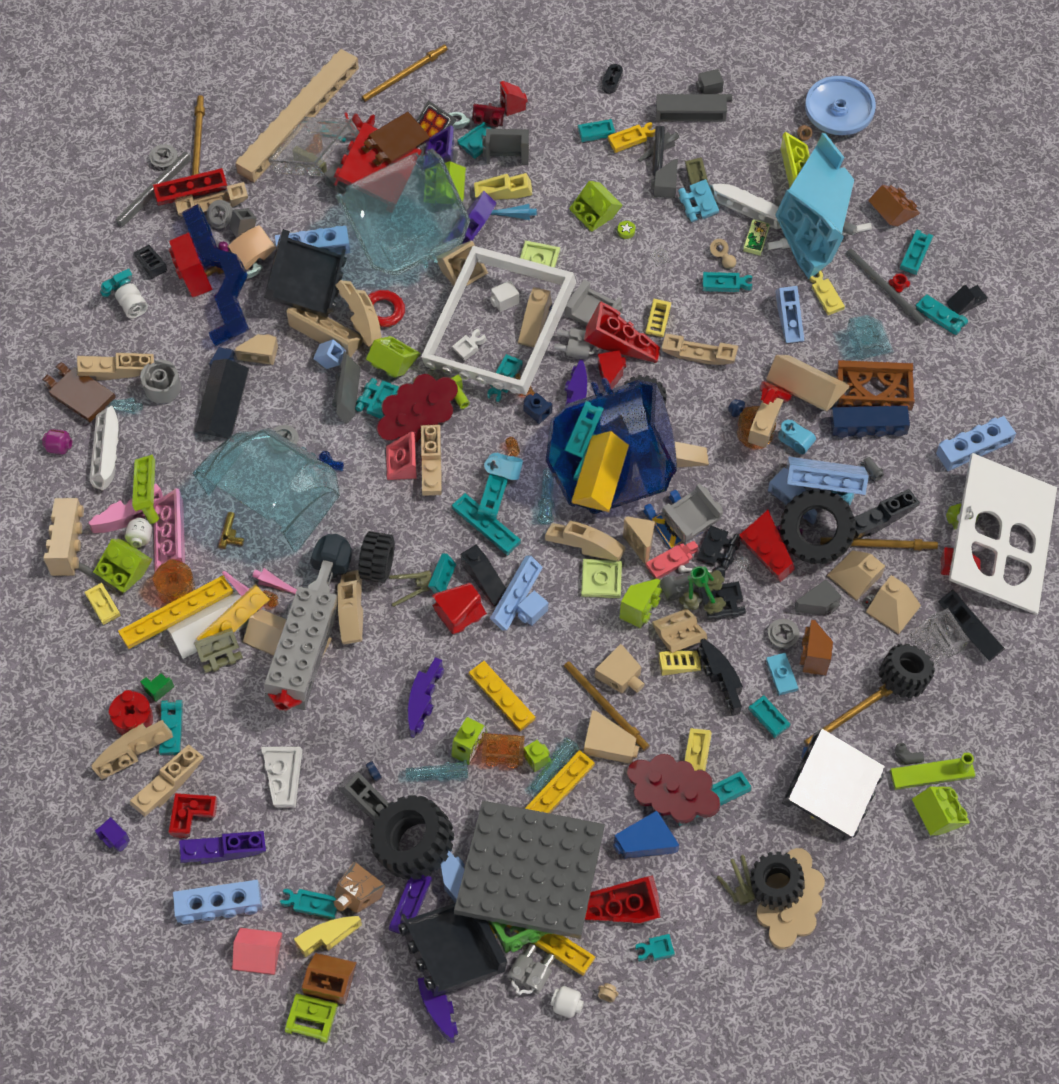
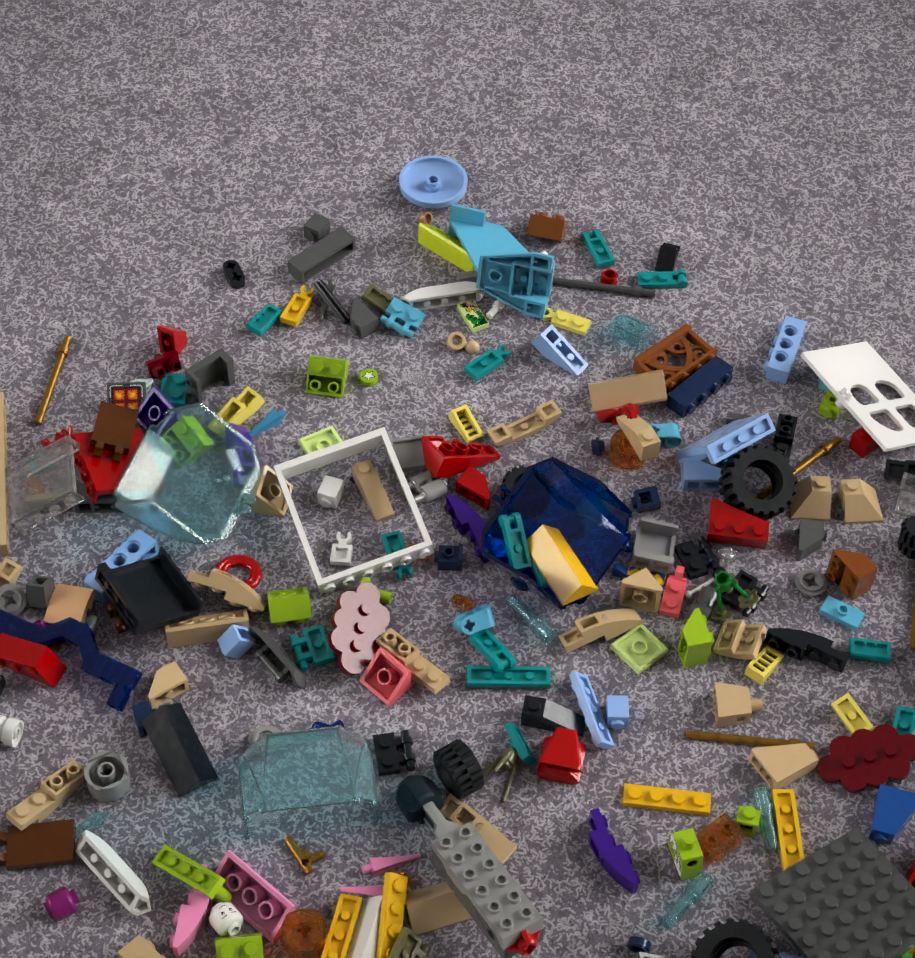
camera: 45 degrees left, 10 degrees down
(351, 510) = (387, 756): none -> black plate
(734, 475) = (649, 494): none -> dark blue brick

